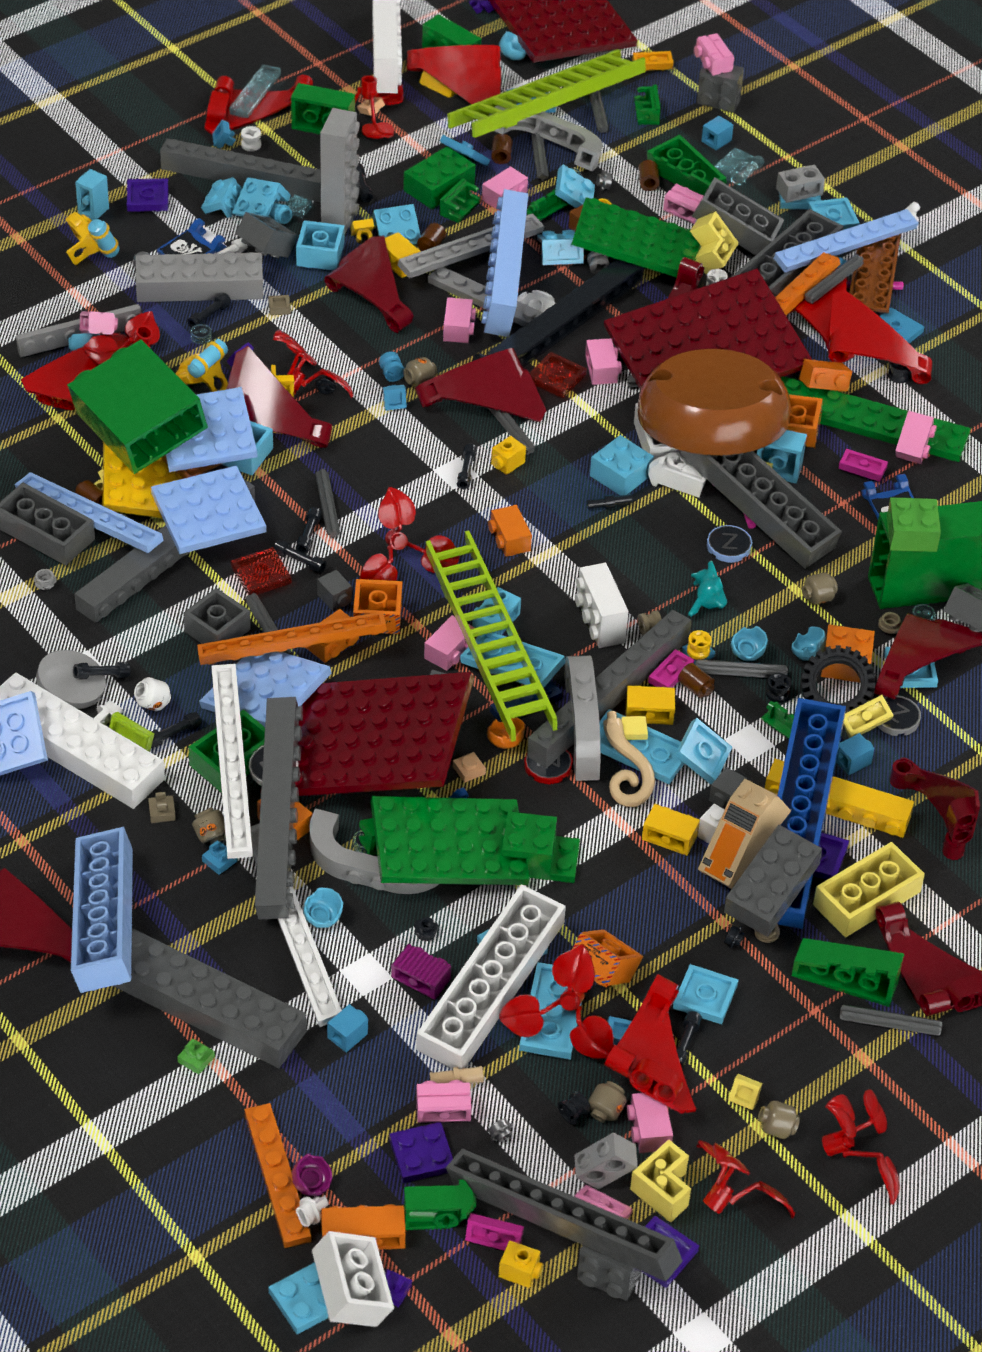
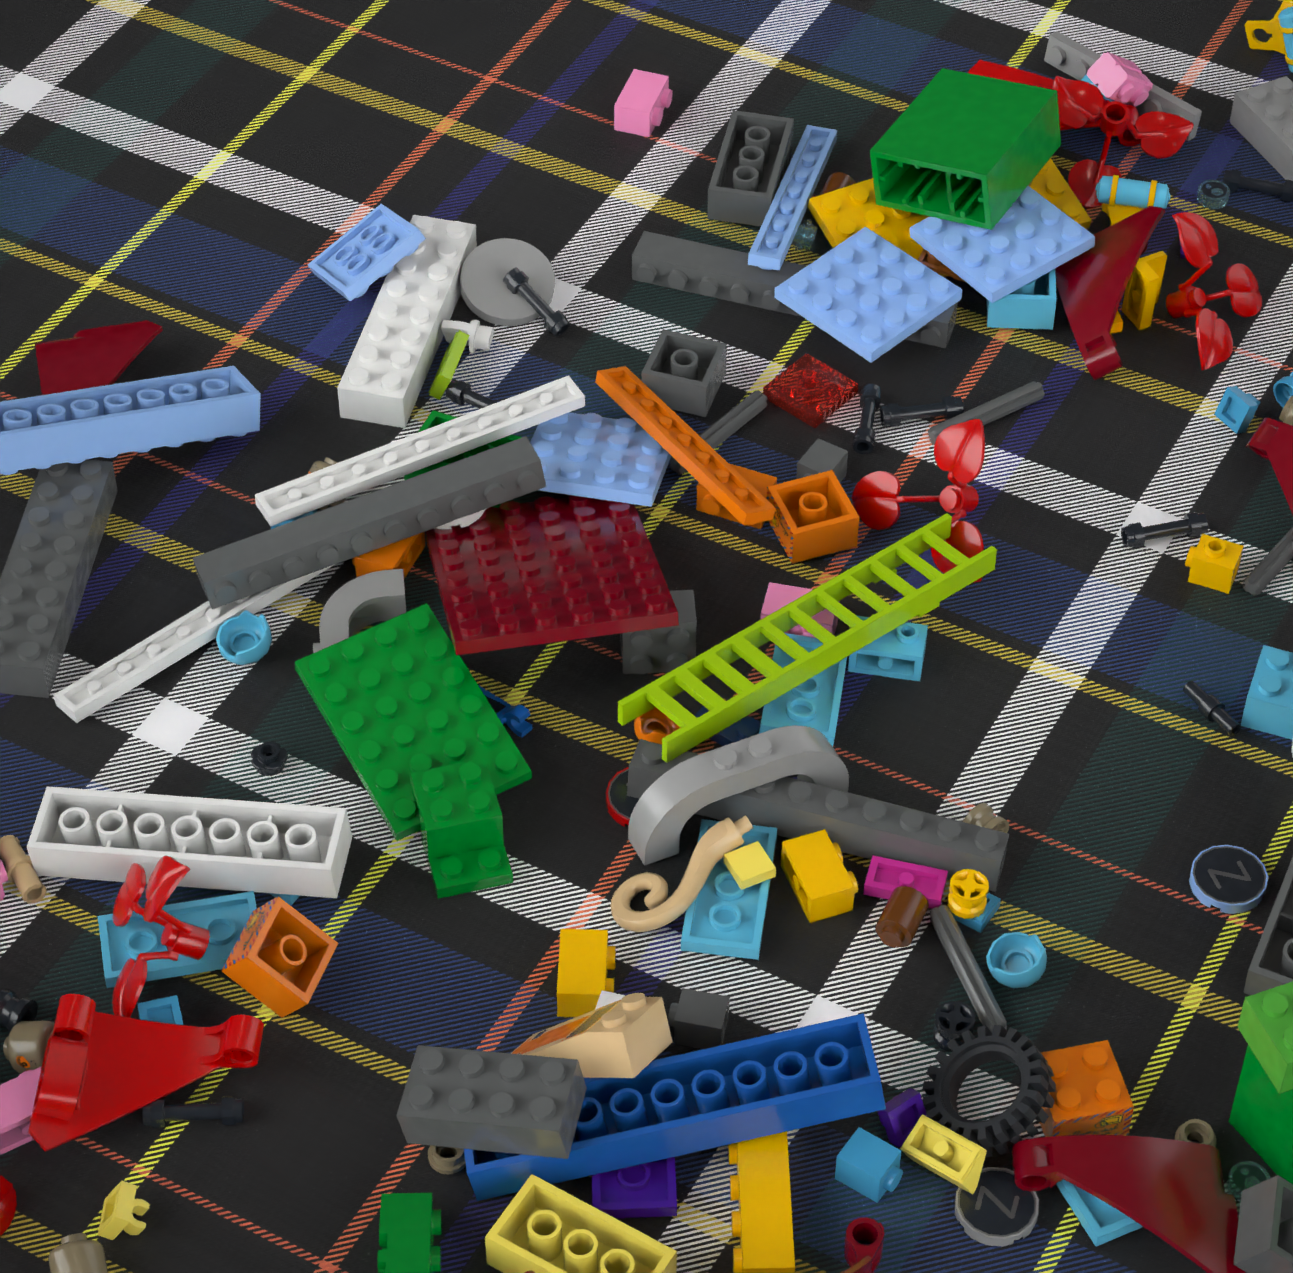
camera: 70 degrees right, 0 degrees up
(44, 579) = (668, 207): light grey plate -> none
(152, 694) = (523, 359): white head -> none
(161, 808) = (347, 438): dark tan tile -> none
(347, 1028) = (56, 729): dark azure brick -> none
(421, 971) = (187, 766): magenta brick -> none
(469, 767) = (586, 713): light nougat plate -> none
(510, 530) = (1064, 612): orange brick -> none
(601, 605) = (968, 751): white brick -> none
(703, 751) = (754, 962): medium azure plate -> none
(705, 993) = (287, 1110): medium azure plate -> none
(710, 590) = (1097, 878): teal animal -> none
(778, 718) = (892, 1052): green hinge -> none
(809, 644) = (1060, 1033): medium azure hair -> none
(819, 588) = (1198, 1016): dark tan head -> none

